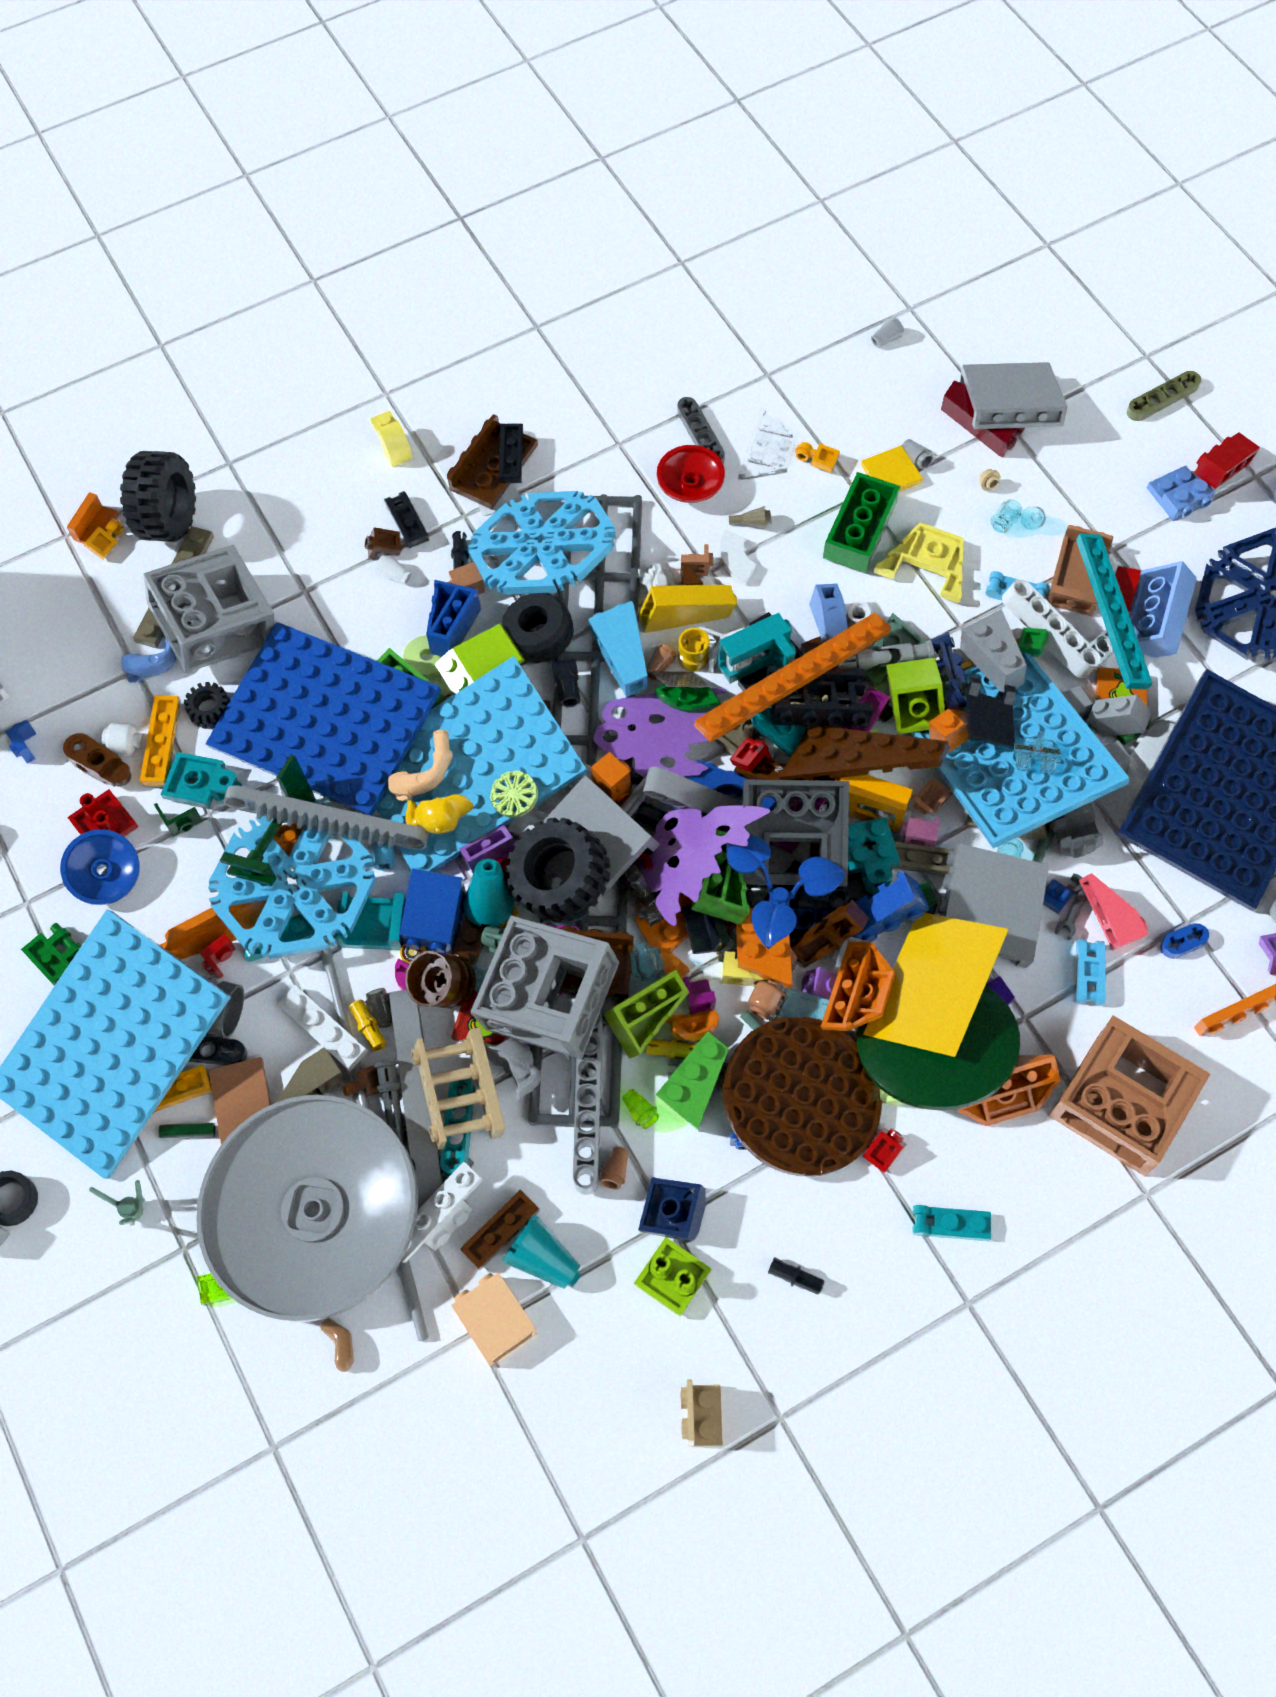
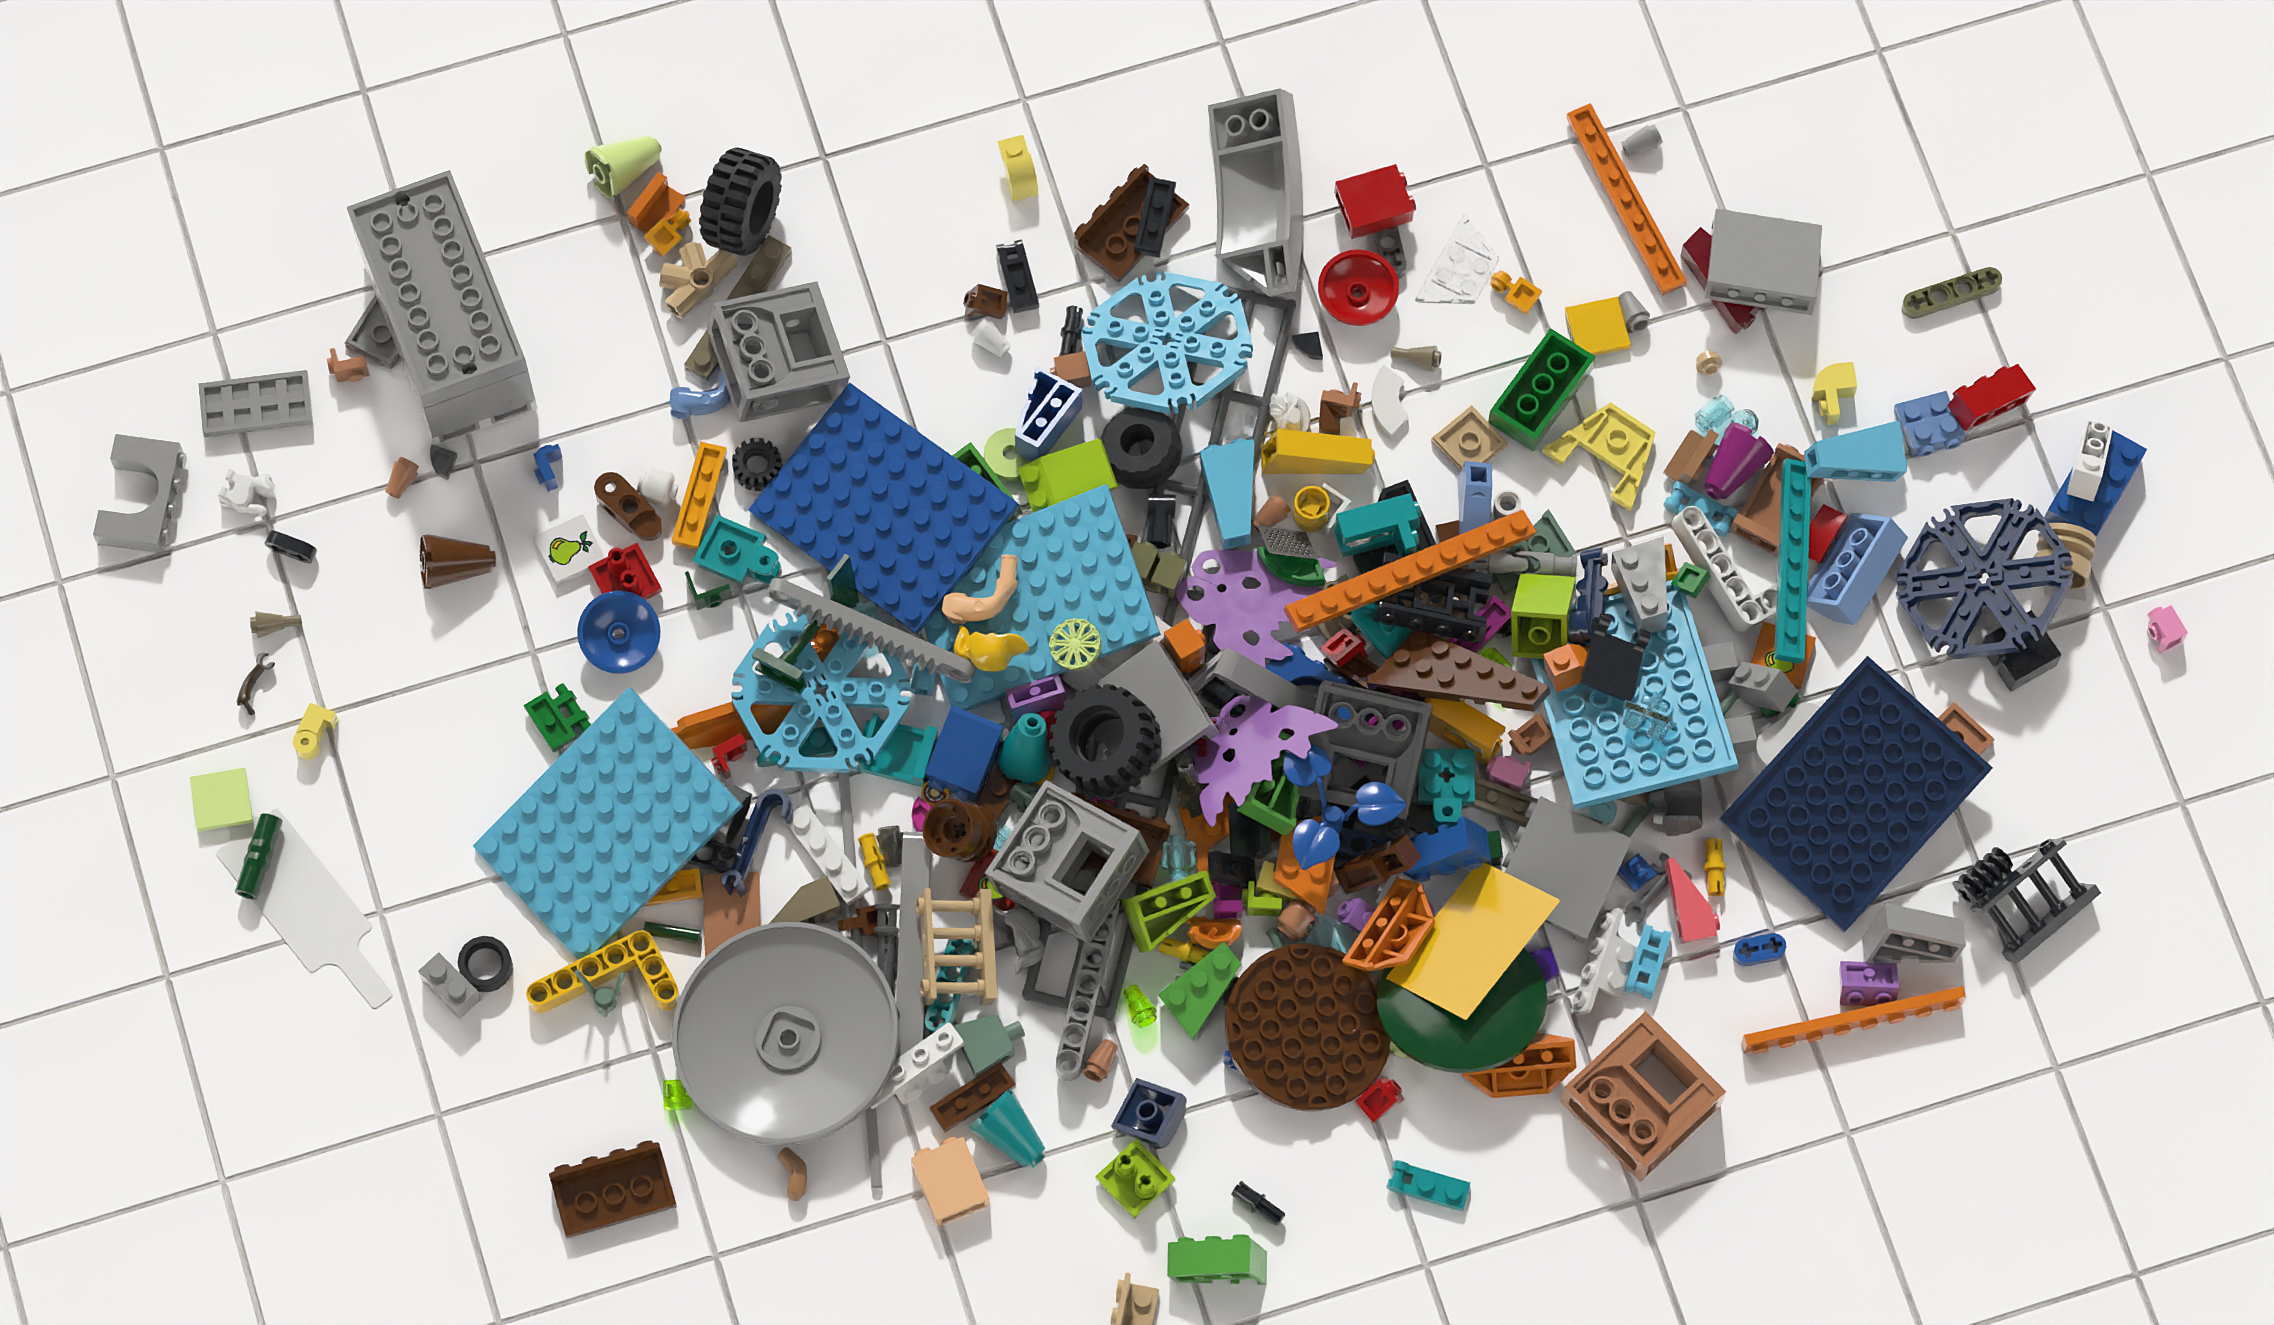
camera: 10 degrees right, 5 degrees up
(49, 807) = (569, 549): none -> white tile
(57, 492) = (621, 163): none -> yellowish green cone
(121, 1170) = (607, 971): none -> yellow beam
(129, 571) = (695, 269): none -> tan piece
(159, 1400) = (612, 1189): none -> reddish brown bracket
(249, 1026) = (747, 848): none -> dark blue piece
(504, 1172) = (988, 1042): none -> sand green torso
(576, 722) = (1159, 570): none -> olive piece
(590, 417) = (1259, 188): none -> light grey slope
(659, 526) = (1308, 344): none -> black tile
(687, 408) = (1374, 201): none -> red brick
(697, 965) = (1231, 869): none -> black plate
(732, 992) = (1263, 905): none -> lime bracket
(769, 1343) = (1216, 1260): none -> bright green wedge
(807, 570) = (1469, 439): none -> tan tile
(888, 376) = (1626, 199): none -> orange plate
(998, 550) = (1689, 456): none -> medium nougat bracket
(1038, 543) = (1736, 461): none -> magenta cone
(1053, 982) = (1607, 964): none -> white bracket
(1095, 479) = (1831, 384): none -> light yellow brick
(1122, 877) = (1715, 867): none -> yellow pin
(1137, 521) = (1860, 455): none -> medium azure slope

